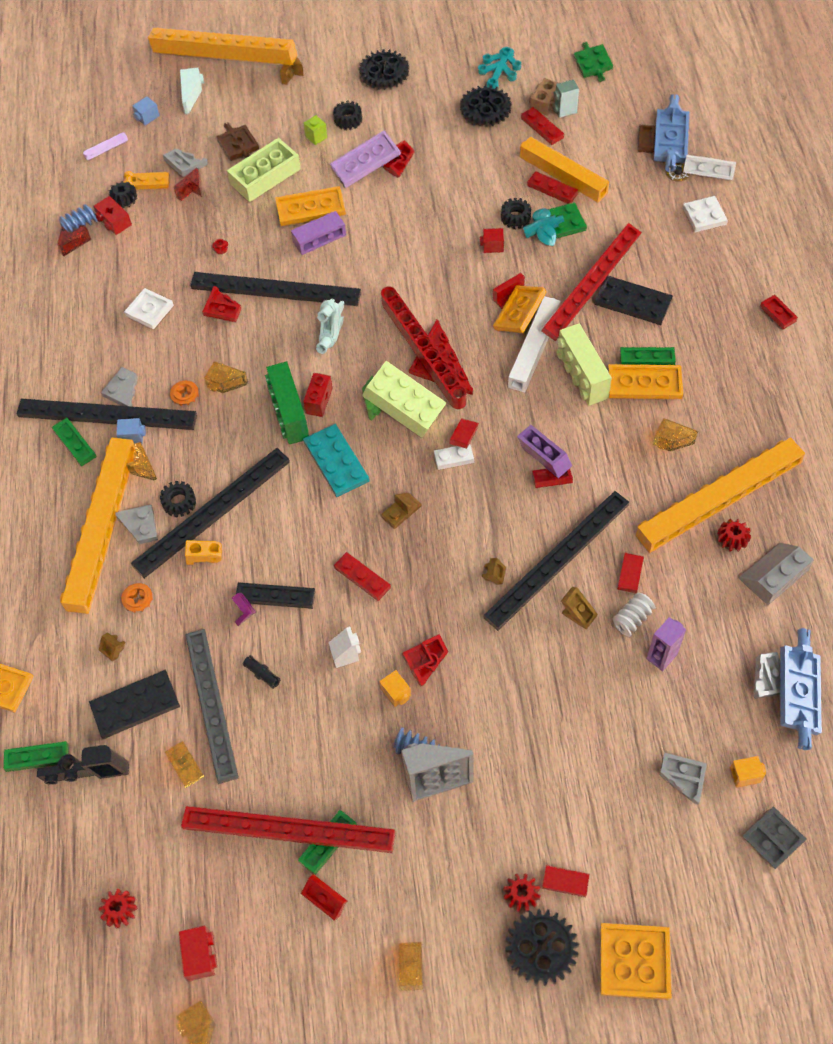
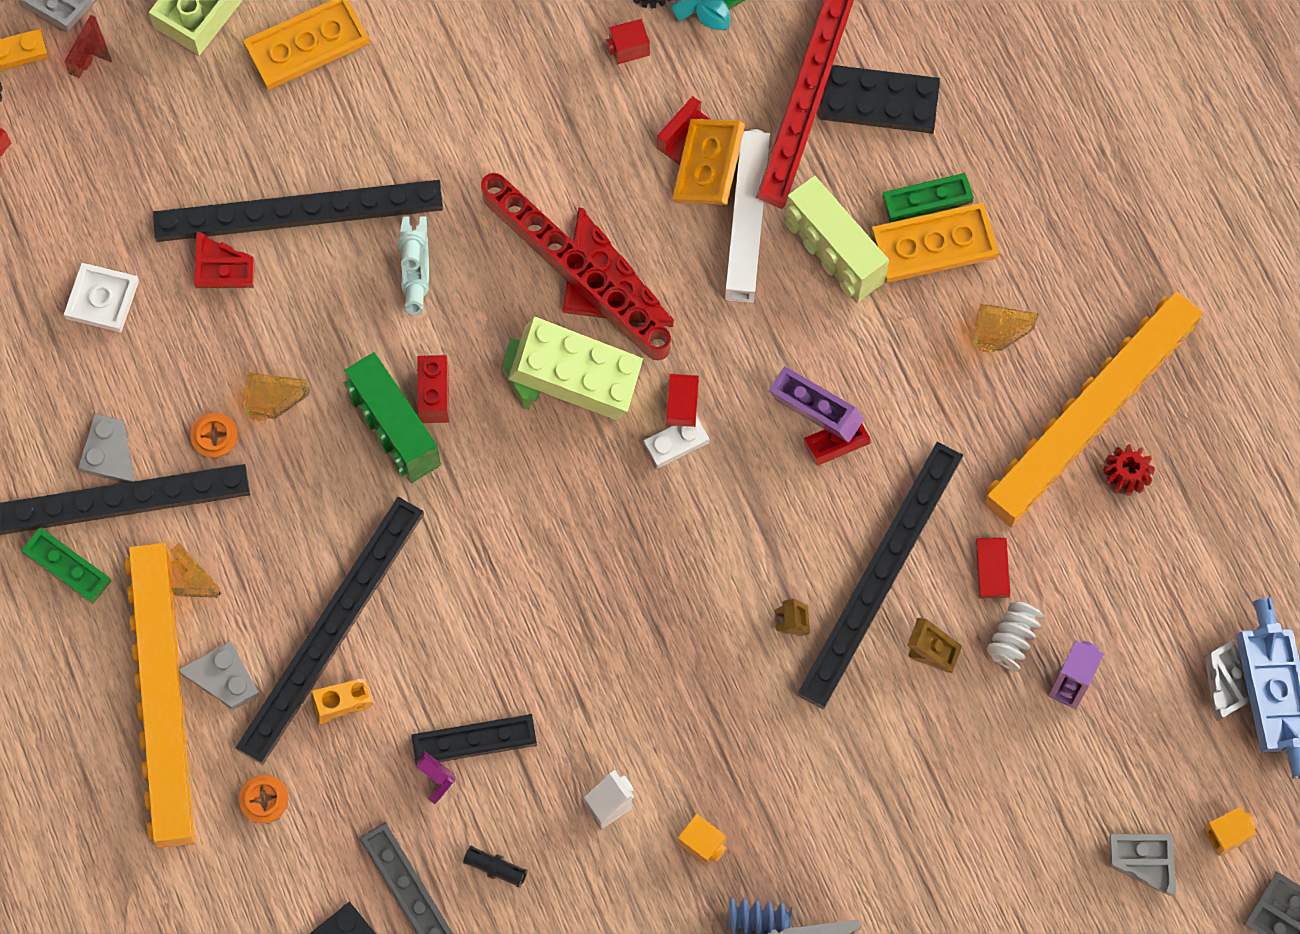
camera: 20 degrees left, 10 degrees up
(110, 646) = (252, 887): pearl gold tile -> none
(131, 429) = (153, 525): medium blue brick -> none
(174, 490) = (257, 609): black tyre -> none
(220, 246) = (179, 158): red plate -> none
(318, 232) = (337, 91): medium lavender brick -> none
(336, 460) = (495, 492): teal plate -> none
(362, 576) = (596, 675): red plate -> none
(402, 509) = (623, 550): pearl gold slope -> none
(425, 658) = (730, 780): red slope -> none
(777, 571) = (1201, 512): light grey slope -> none
(778, 311) = (1109, 70): red plate -> none

